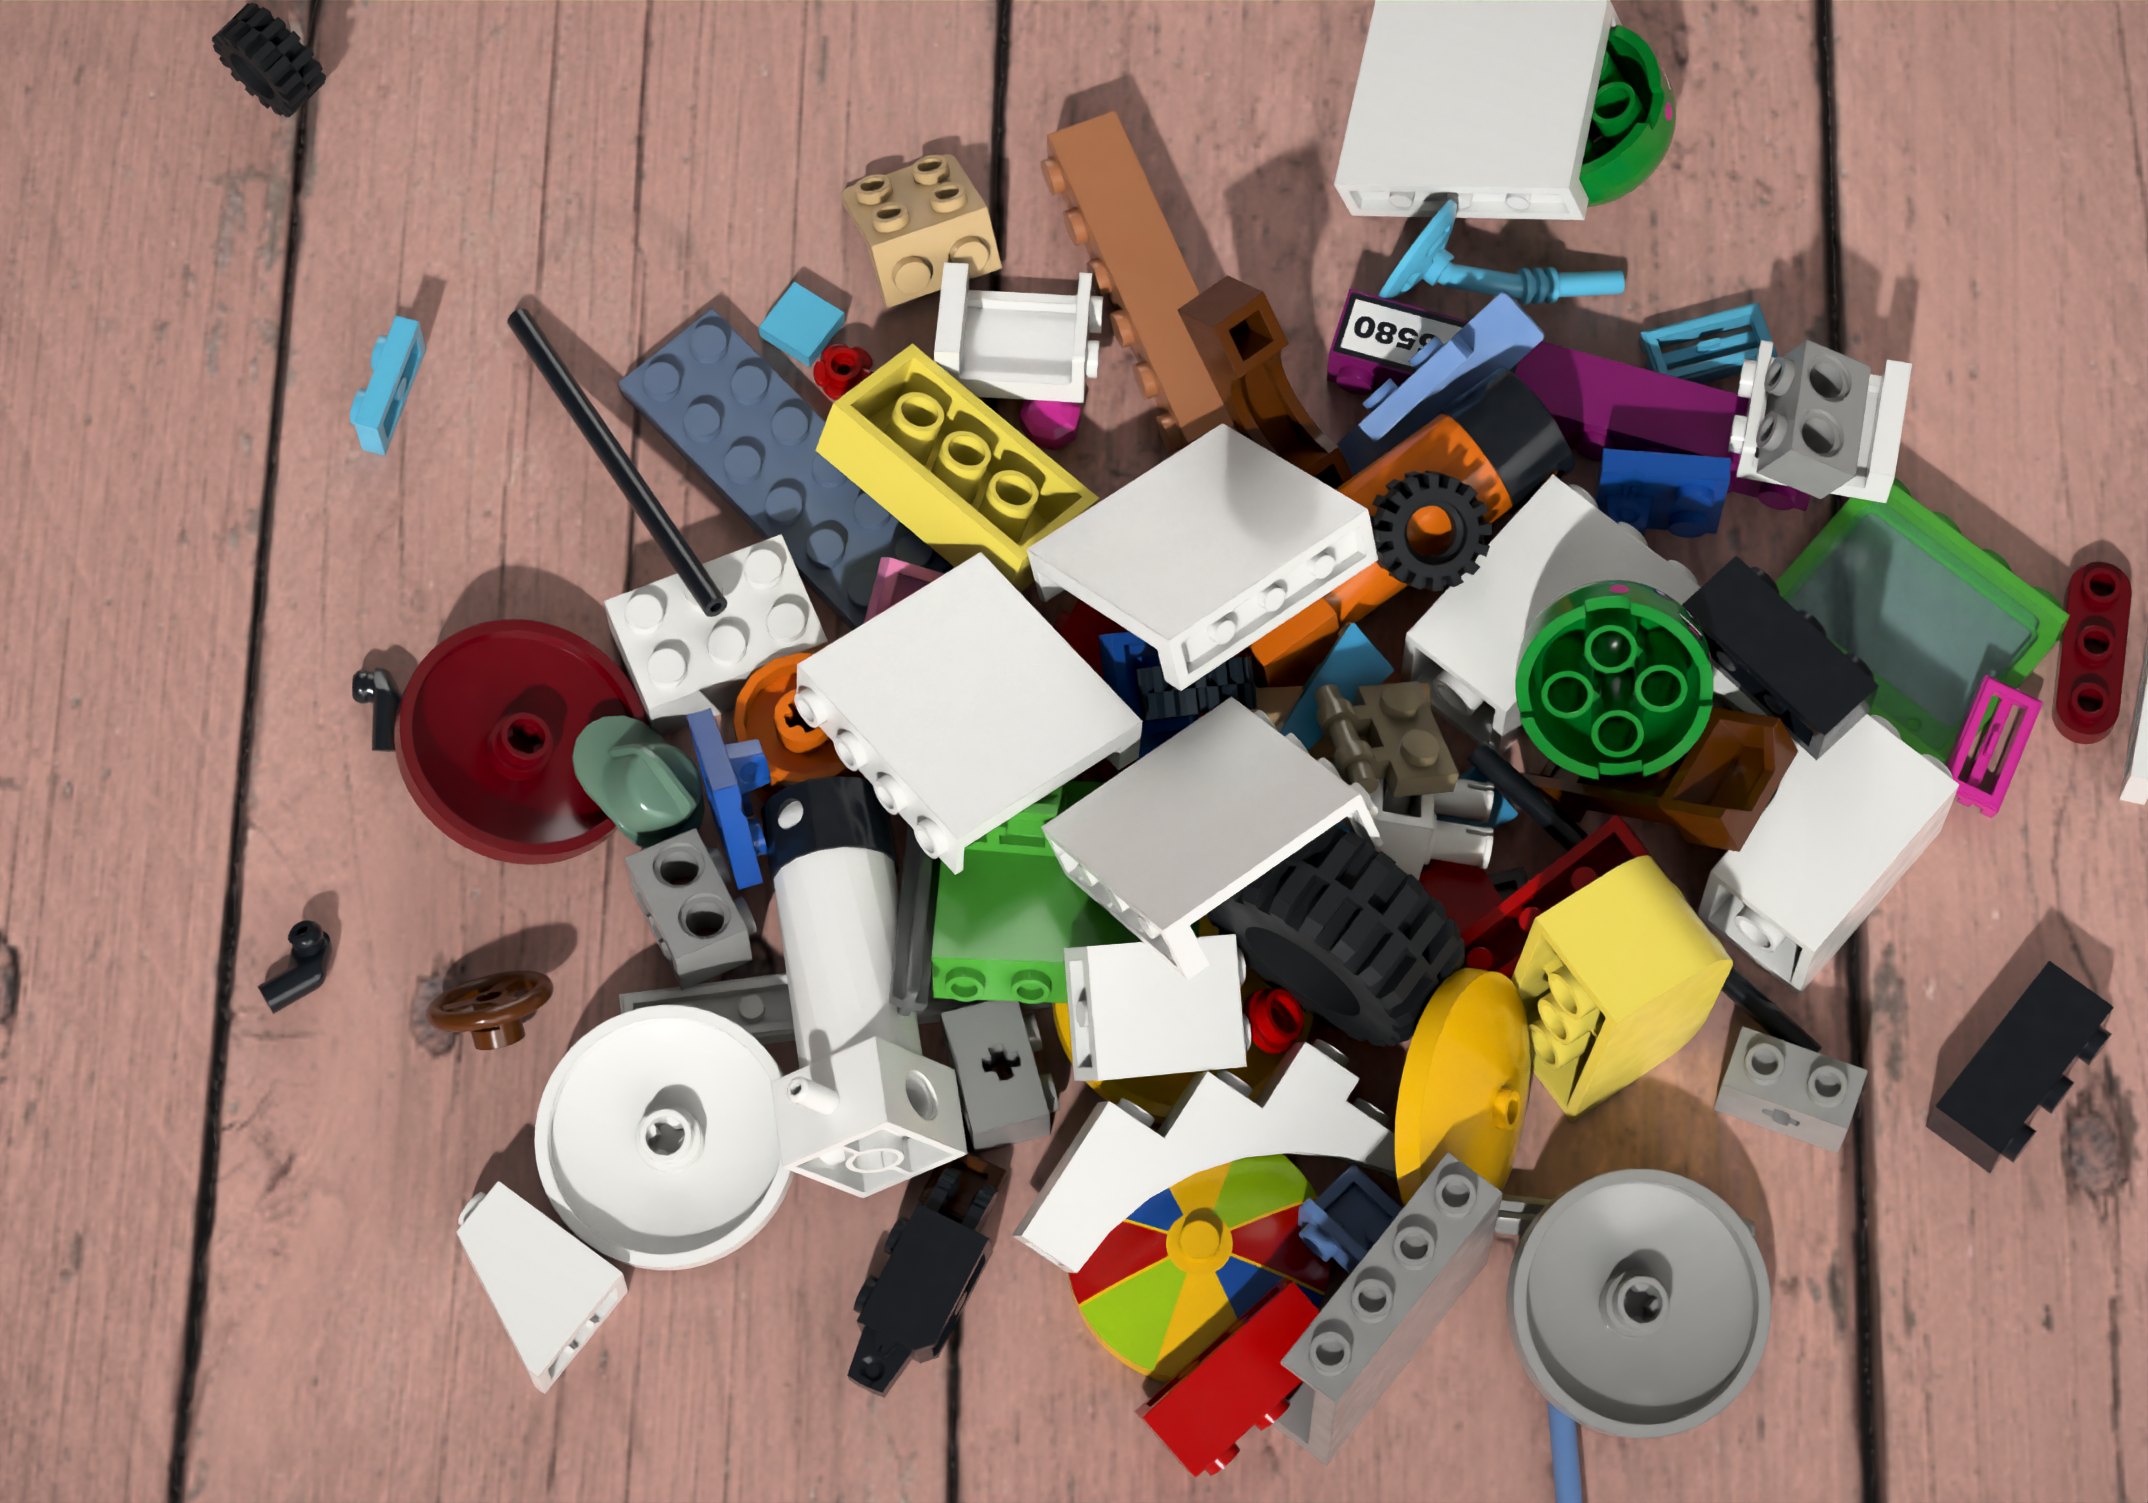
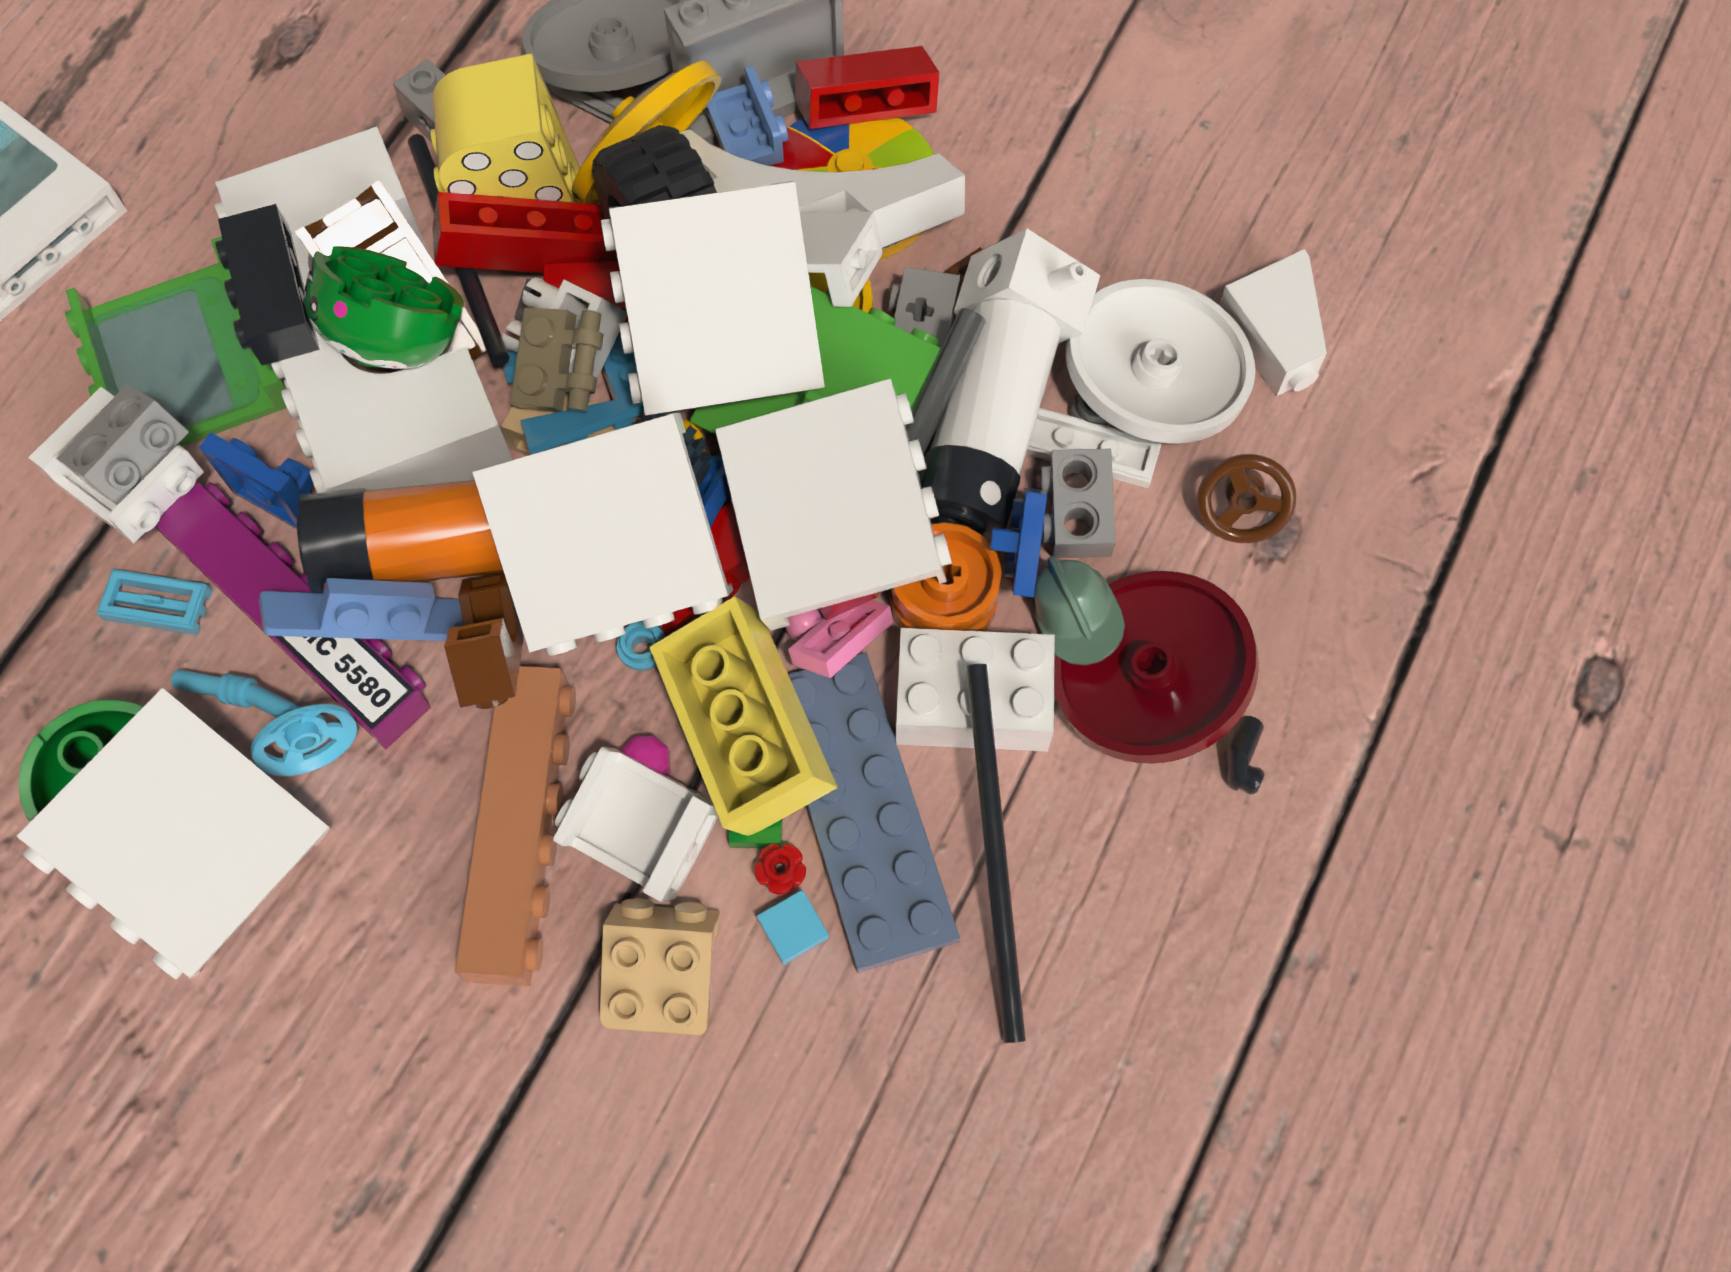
camera: 155 degrees left, 0 degrees up
(306, 966) = (1367, 589): black arm -> none
(395, 366) = (1164, 1003): medium azure plate -> none
(921, 1287) = (1041, 204): black hinge -> none
(1466, 535) = (435, 468): black tyre -> none
(1968, 791) = (175, 262): dark pink tile -> none
(2022, 1069) = (302, 76): black brick -> none
(2089, 674) = (91, 271): dark red plate -> none

